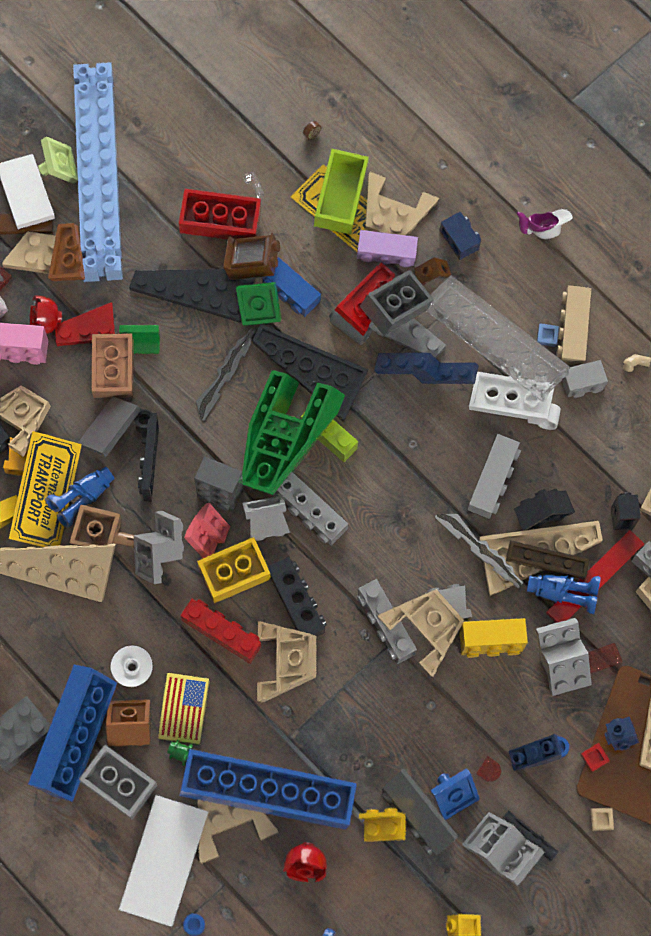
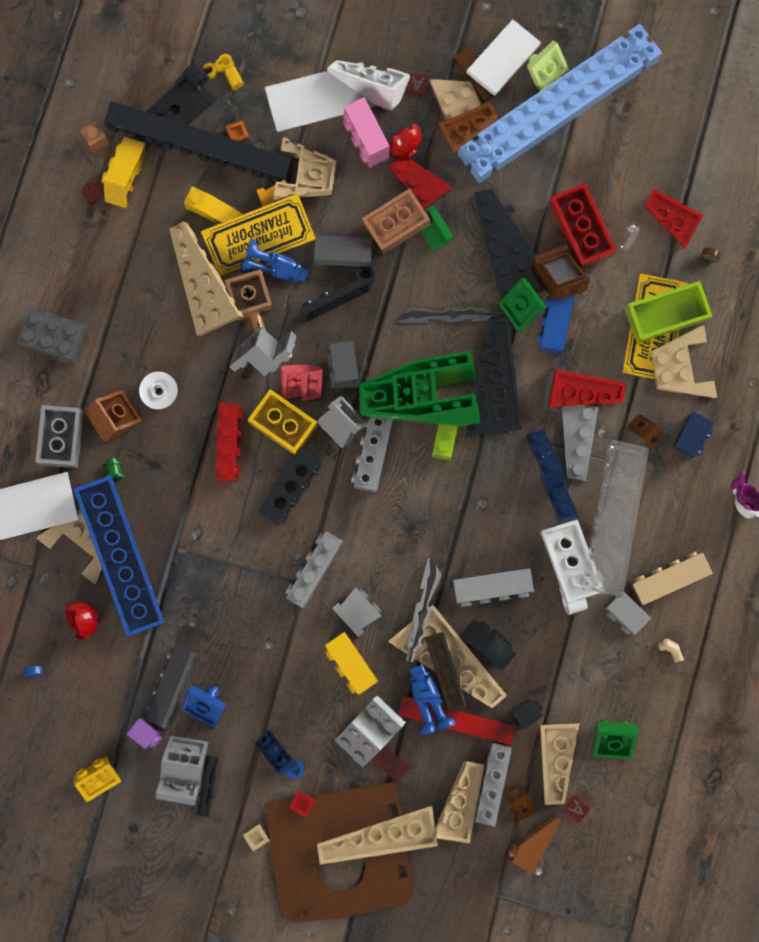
camera: 60 degrees right, 10 degrees up
(72, 733) = (75, 378): blue brick -> none
(183, 708) = (148, 451): slope -> none
(259, 139) = (674, 216): none -> red wing
(294, 659) = (238, 513): tan wing -> none
(383, 825) = (145, 664): yellow bracket -> none
(387, 248) = (641, 380): lavender brick -> none
(396, 302) = (592, 417): dark grey brick -> none
(433, 619) = (334, 606): tan wing -> none
(449, 862) = (145, 733): none -> medium lavender brick
(489, 770) = (242, 723): clear red tile -> none
(547, 335) = (649, 560): medium blue tile -> none
(621, 733) = (332, 814): dark blue brick -> none

